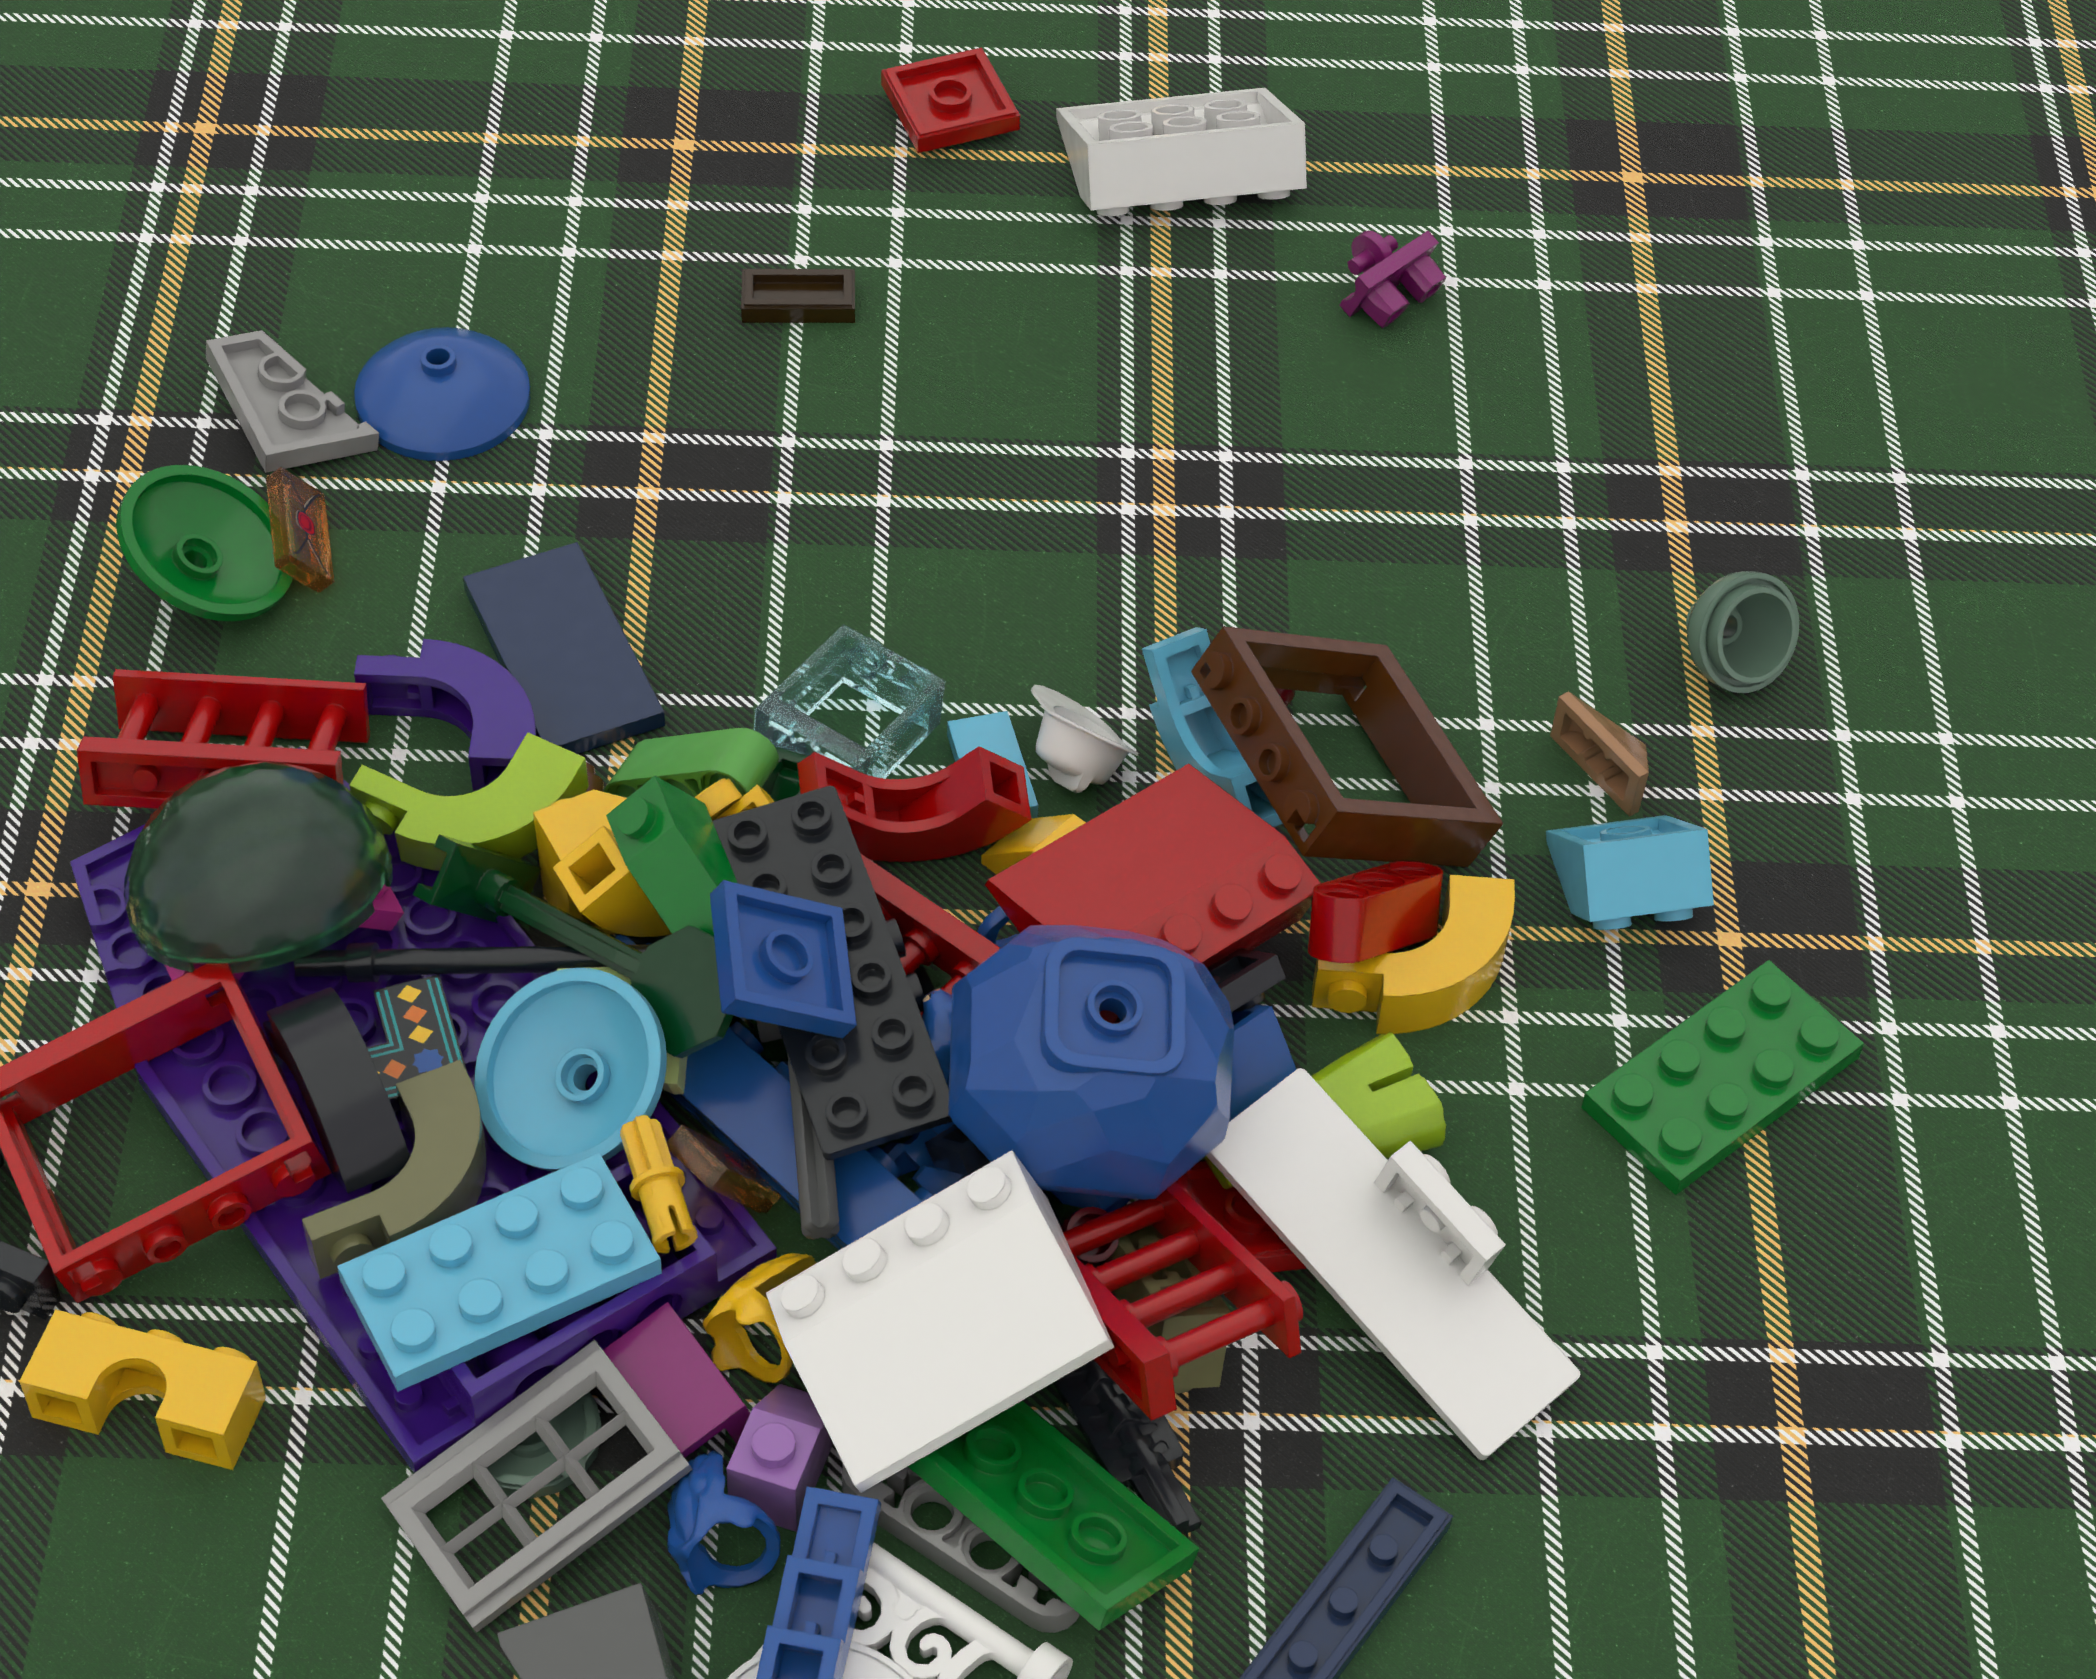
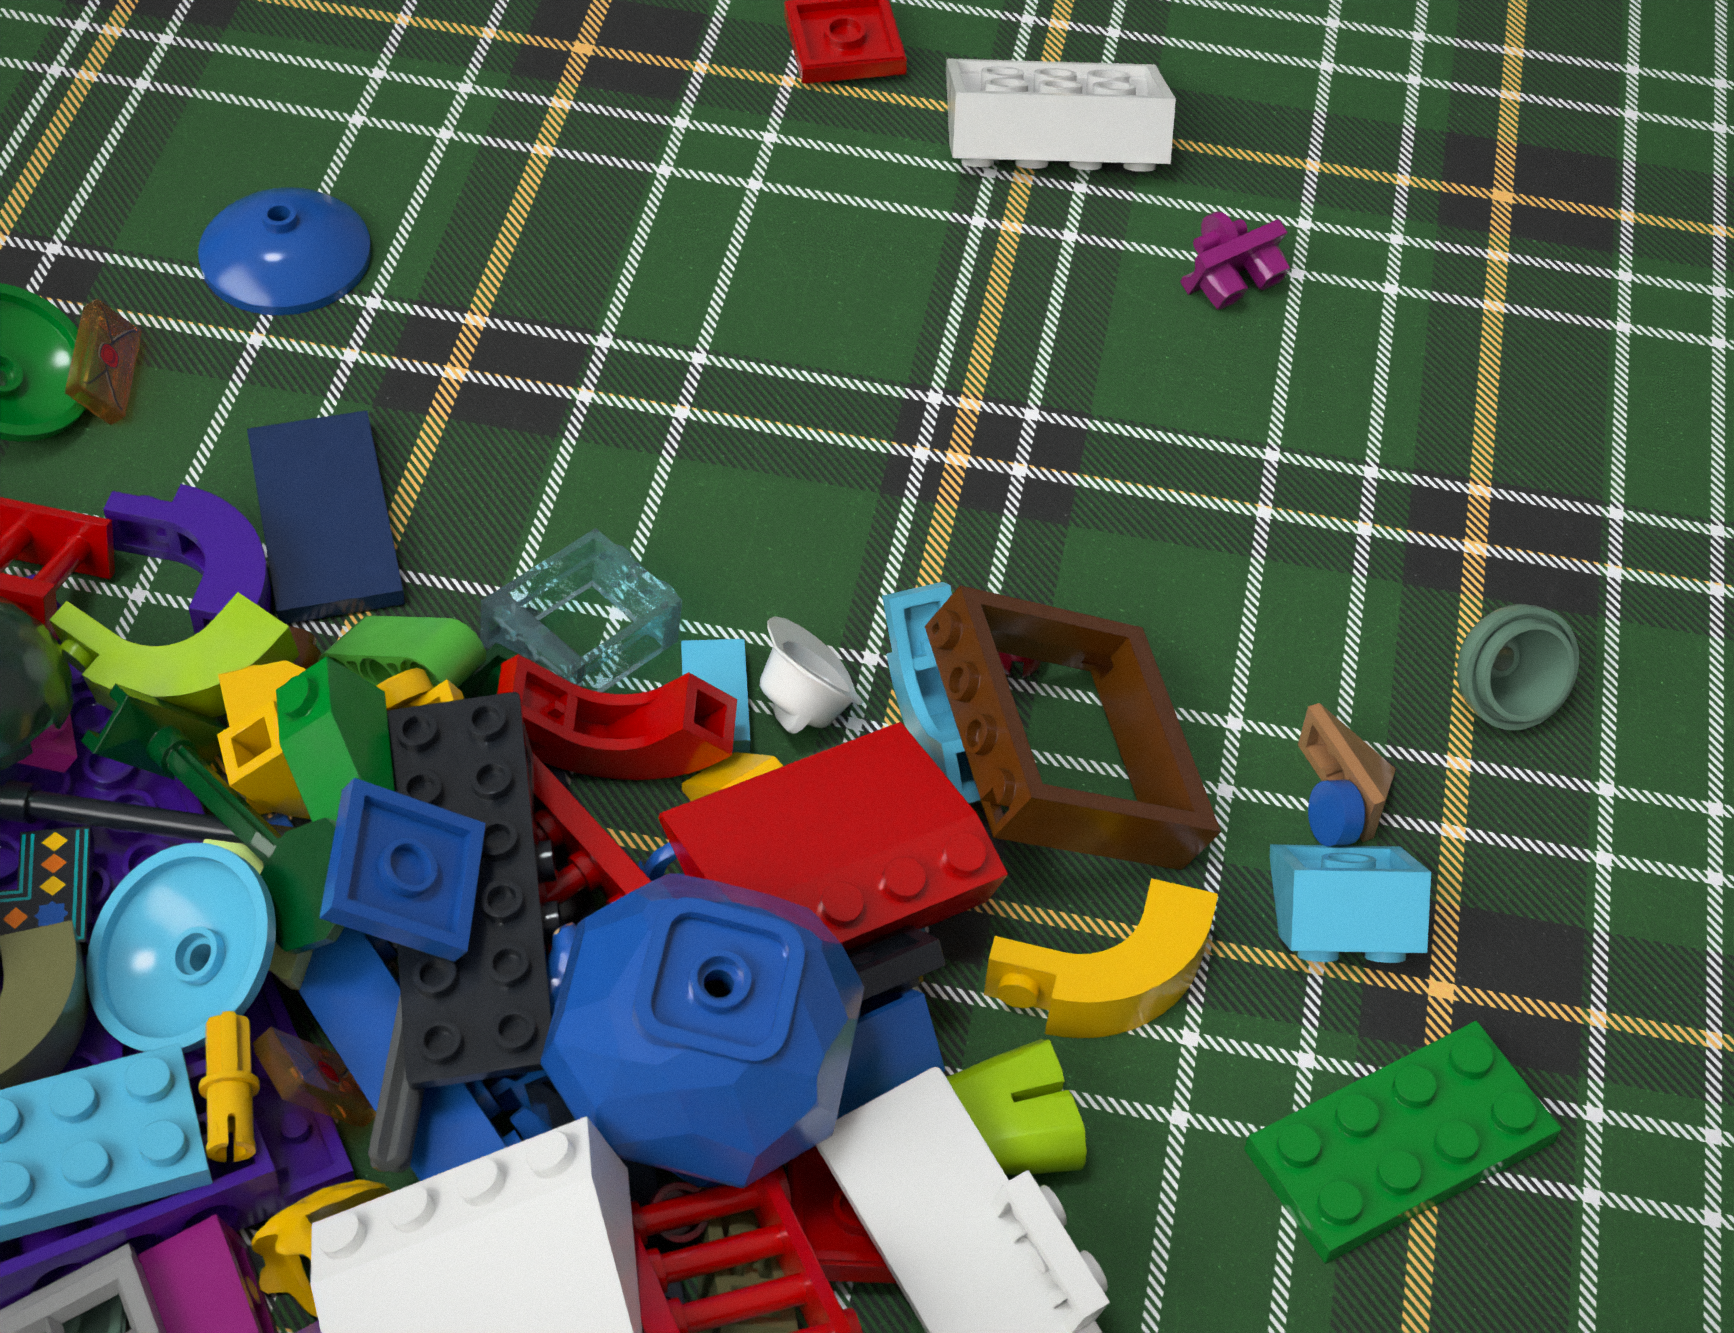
camera: 10 degrees right, 0 degrees up
(280, 408) = (125, 244): light grey wing -> none
(798, 296) = (650, 203): dark brown tile -> none
(1374, 911) = (1061, 906): red beam -> none
(1602, 791) = (1336, 812): none -> blue tile

